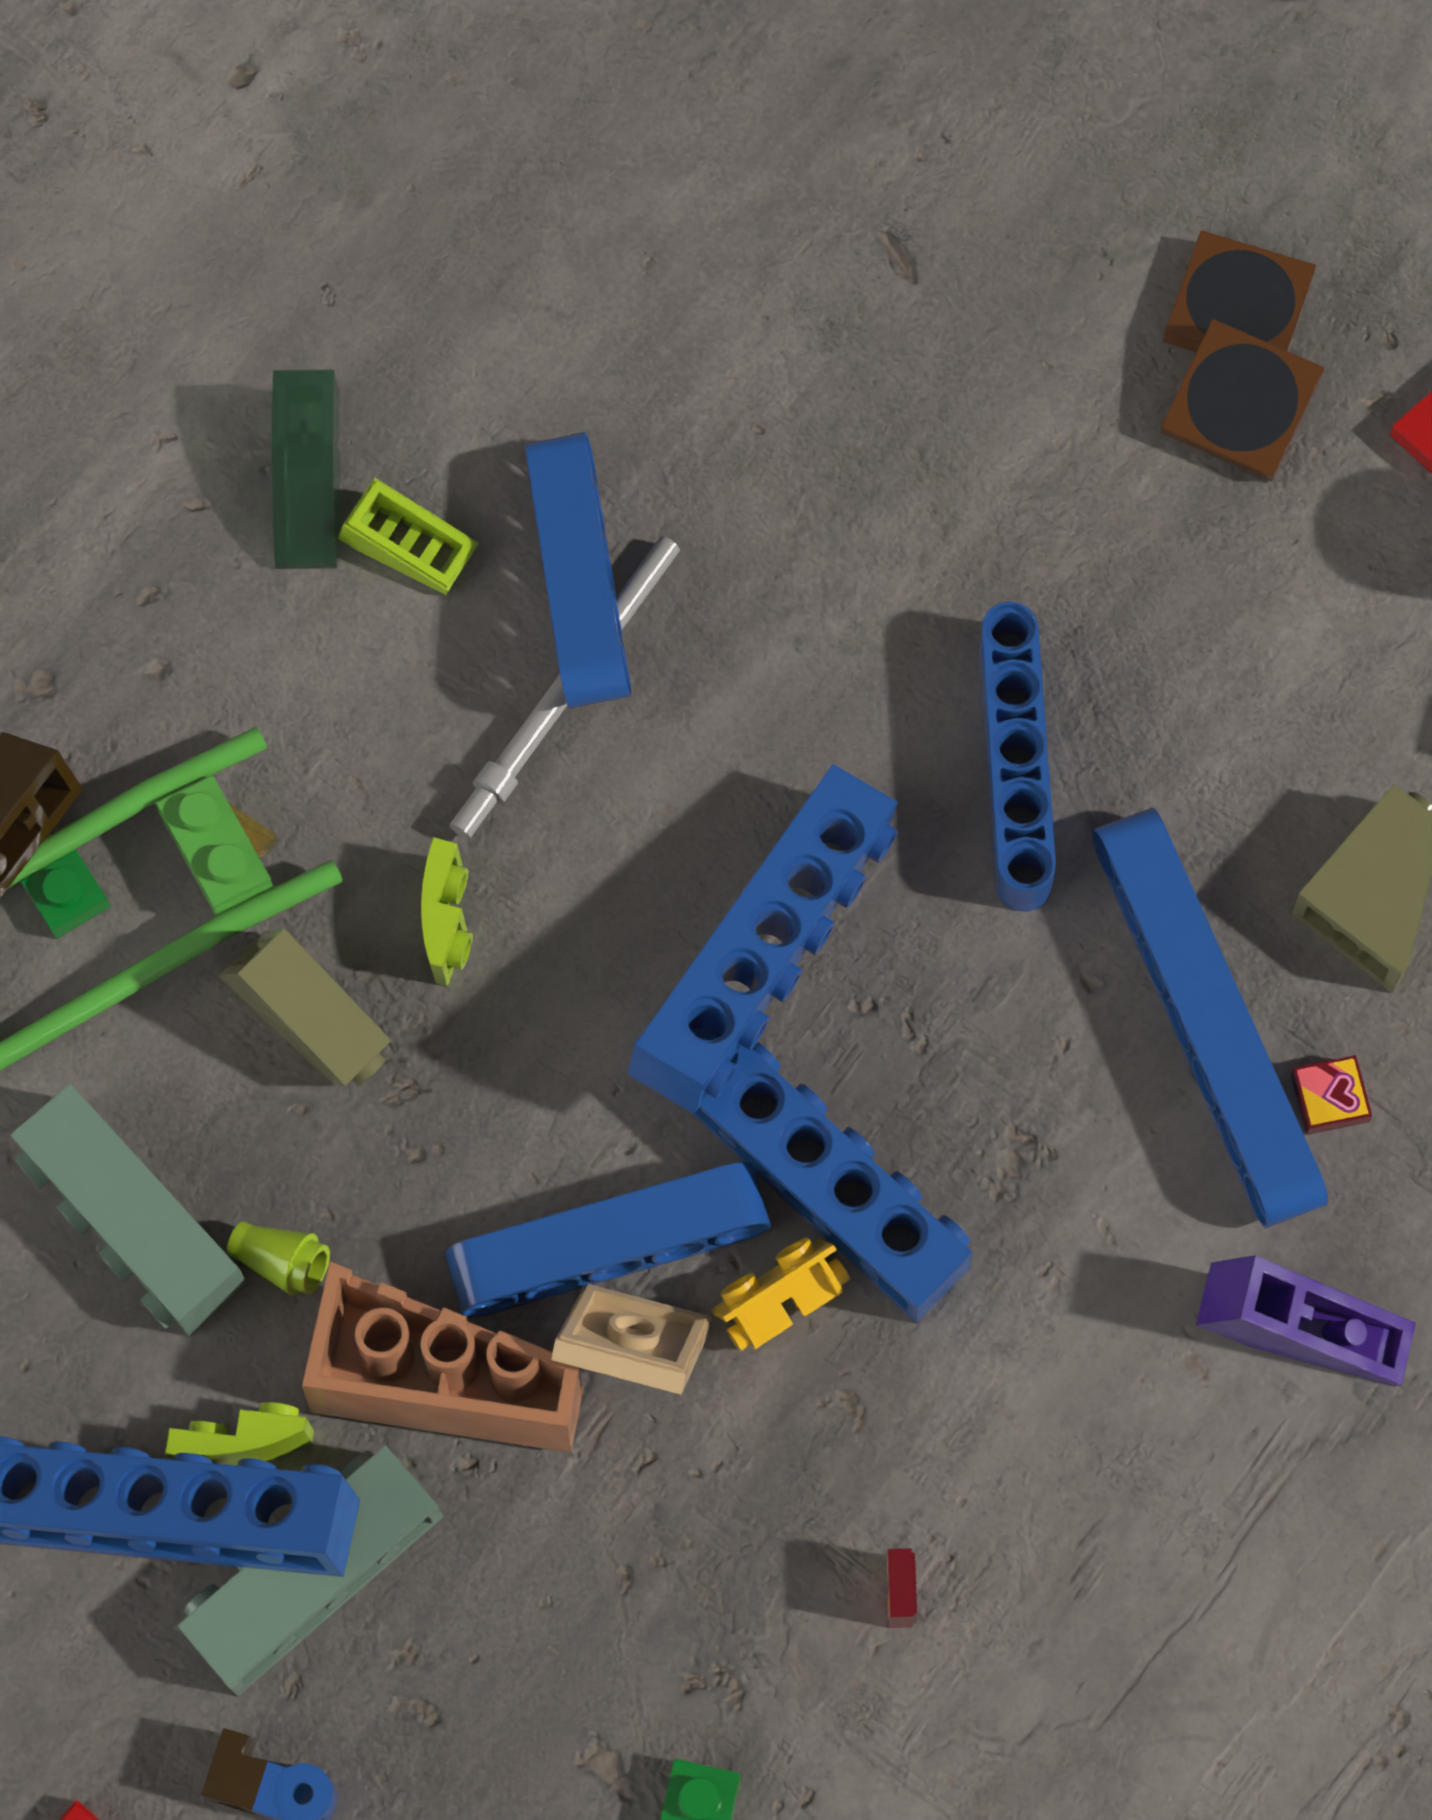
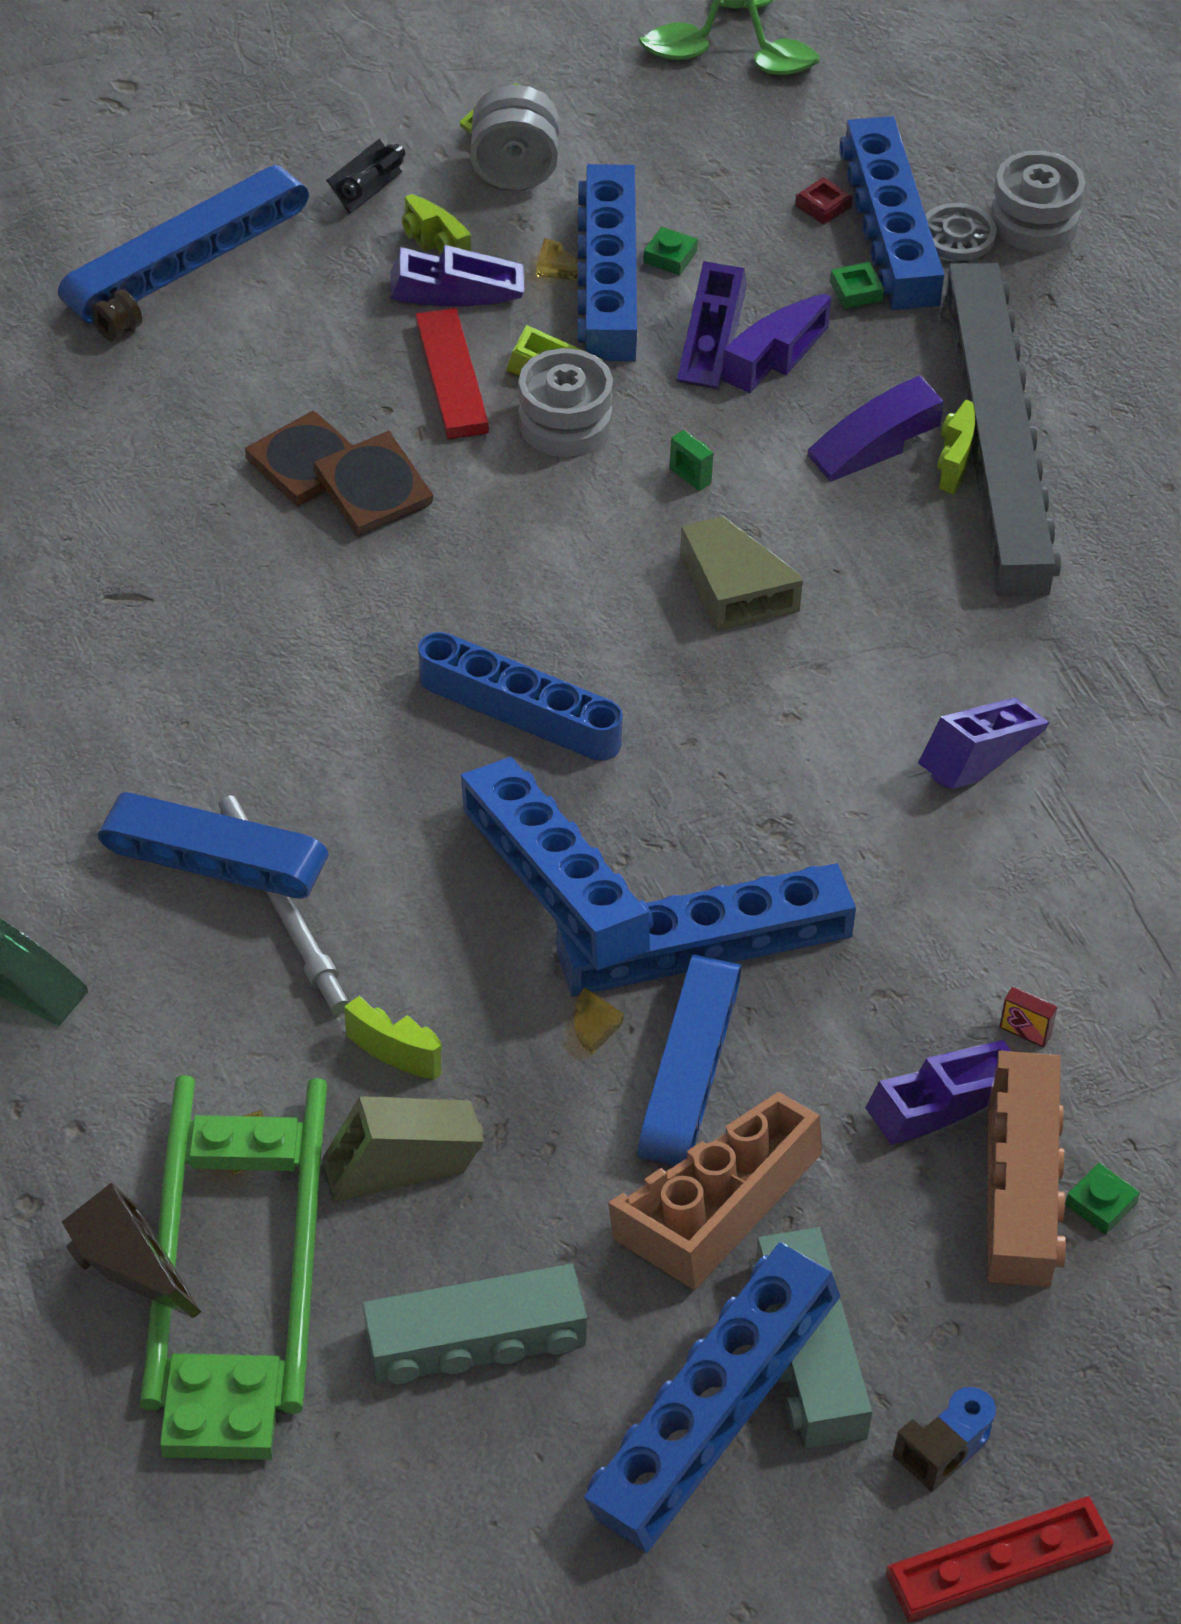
camera: 65 degrees left, 20 degrees down
(66, 894) = (204, 1259): green plate -> none
(259, 1435) = (692, 1322): lime slope -> none
(282, 1256) = (577, 1243): lime cone -> none
(399, 509) = (71, 936): lime slope -> none
(608, 1106) = (595, 1020): none -> clear yellow tile
(632, 1338) = (773, 1067): tan tile -> none
(657, 1698) = (1024, 1170): none -> nougat wedge
(741, 1548) = (937, 1095): none -> dark purple slope
(757, 1301) = (785, 970): yellow hinge -> none
(1210, 1018) = (757, 690): blue beam -> none
(1331, 1095) = (846, 664): tile -> none

